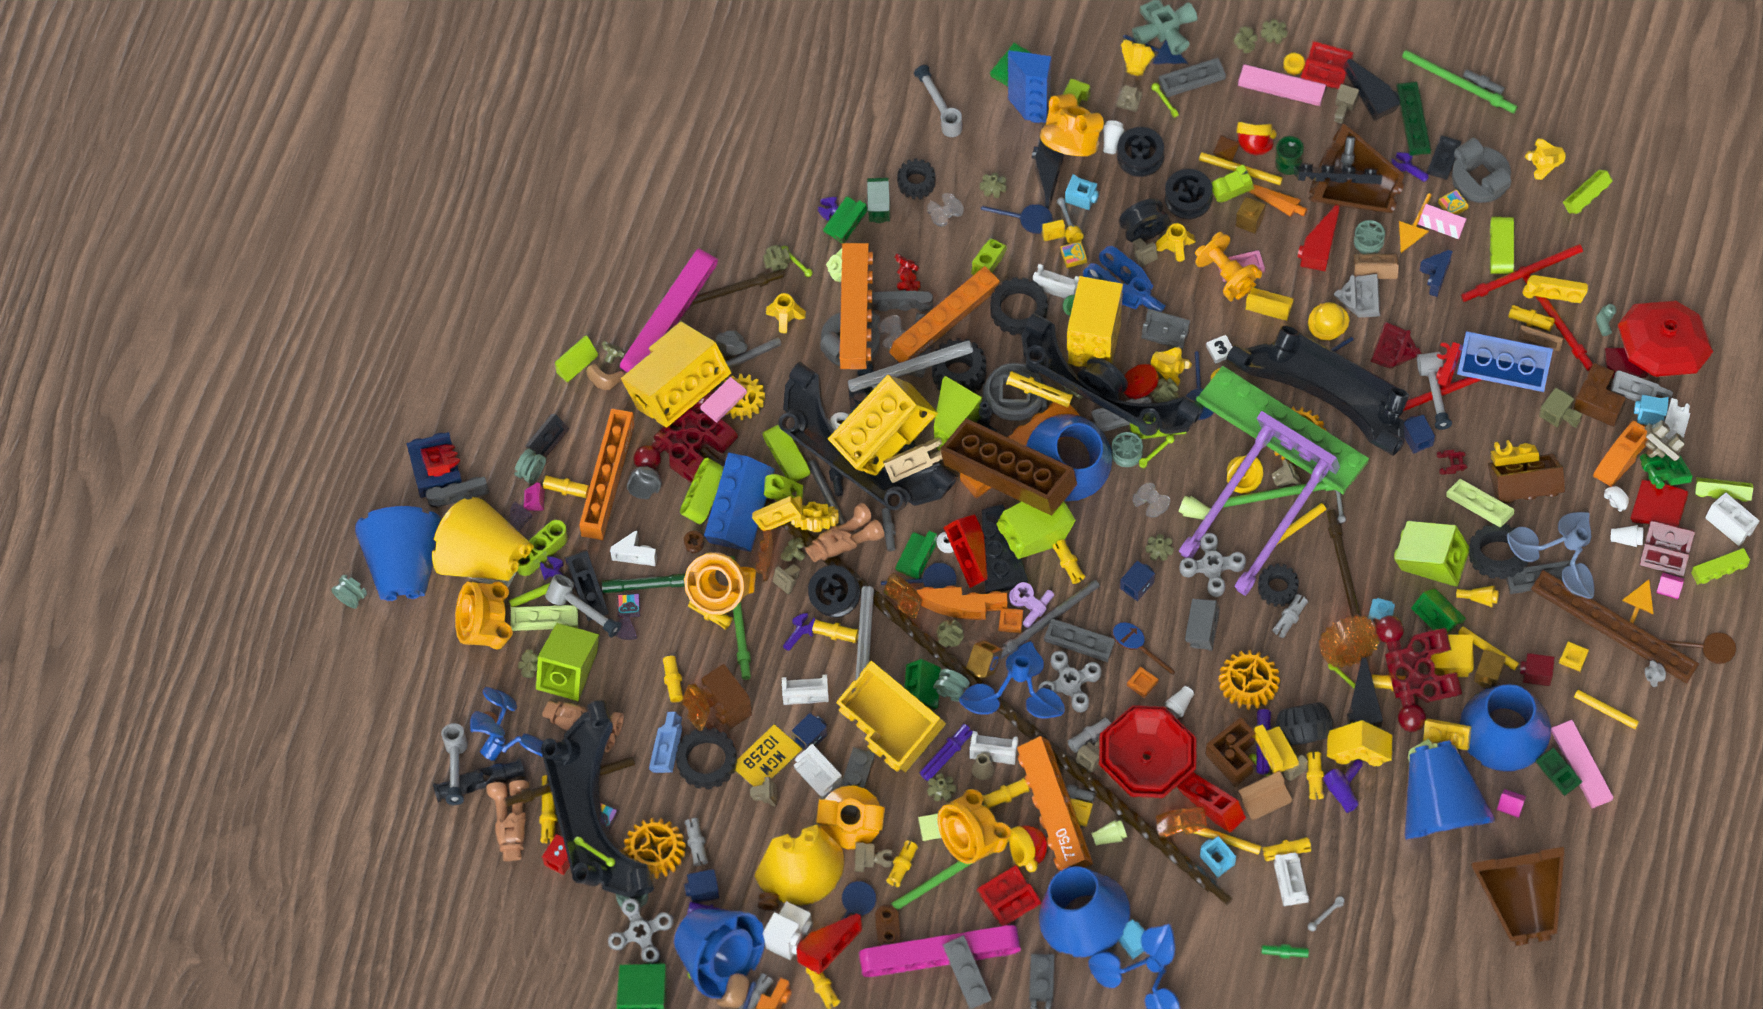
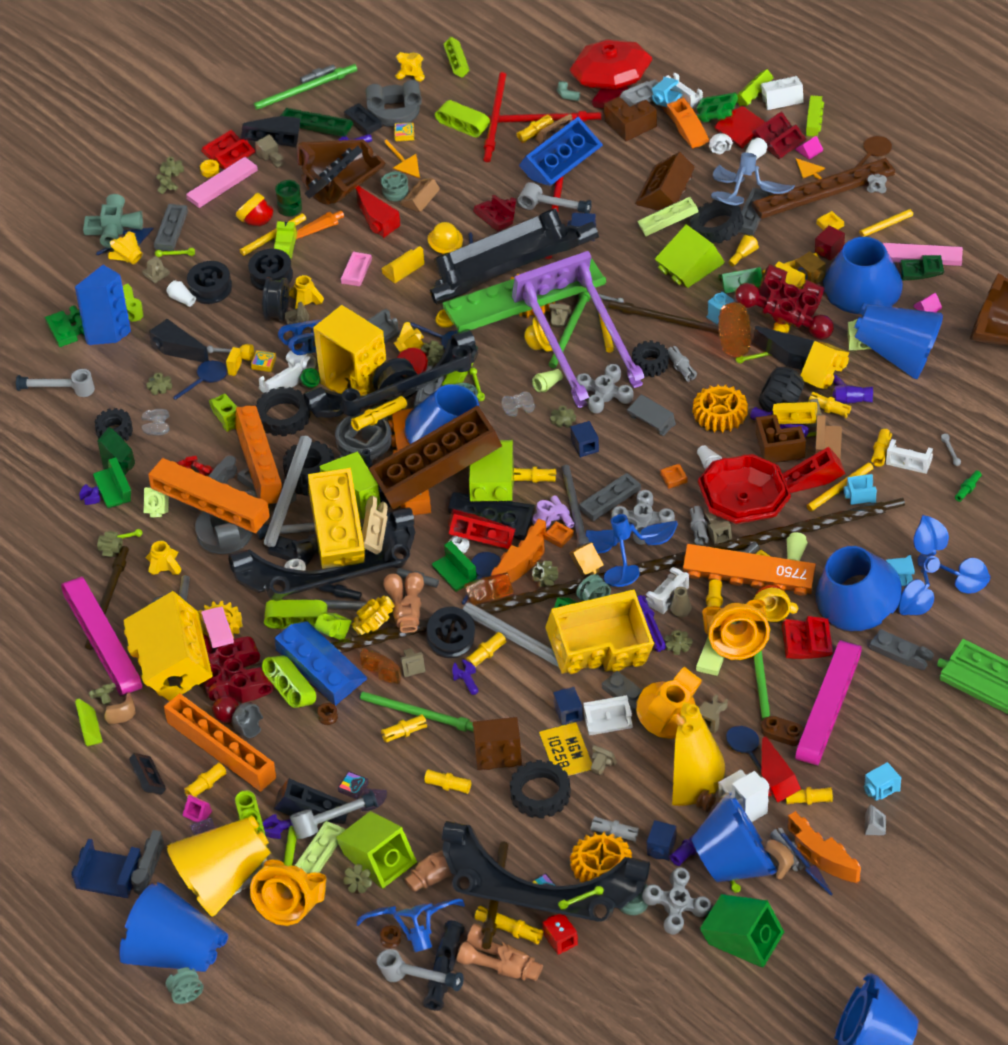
camera: 60 degrees left, 15 degrees down
(439, 459) = (108, 858): red plate -> none
(530, 466) = (167, 795): sand green wheel -> none
(621, 585) = (353, 744): dark green piece -> none
(628, 551) = (306, 759): white slope -> none
(666, 744) = (509, 811): medium blue hinge -> none
(697, 706) = (490, 769): clear orange slope -> none
(708, 593) = (402, 695): light orange piece -> none
(778, 513) = (355, 632): yellow panel -> none
(793, 550) = (390, 645): olive plant -> none
(805, 690) = (525, 693): white hinge -> none
(902, 863) = (732, 694): yellow pin -> none
(966, 972) = (862, 688): plate -> none
(1071, 127) = (158, 303): light orange piece -> none
(1079, 198) = (216, 331): medium azure window -> none
(1132, 638) = (634, 465): blue piece -> none
(1186, 819) = (817, 495): clear orange slope -> none
(1219, 348) = (419, 309): white tile -> none
(1226, 148) = (249, 233): reddish brown slope -> none
(1238, 279) = (364, 268): light orange piece -> none
(1250, 215) = (320, 241): pearl gold brick -> none
(1348, 156) = (323, 161): dark grey bar -> none
(1361, 295) = (440, 210): light grey slope -> none
(1437, 268) = (455, 158): dark blue slope -> none
(1442, 221) = (415, 141): bright pink tile -> none
(1443, 731) = (848, 312): yellow plate -> none
(1450, 454) = (613, 218): dark red piece -> none
(1452, 357) = (541, 174): red plate -> none
(1514, 455) = (641, 182): yellow plate -> none
(1555, 289) = (524, 102): yellow plate -> none
(1559, 408) = (622, 145): olive brick -> none
(1660, 444) = (697, 95): dark tan hips -> none

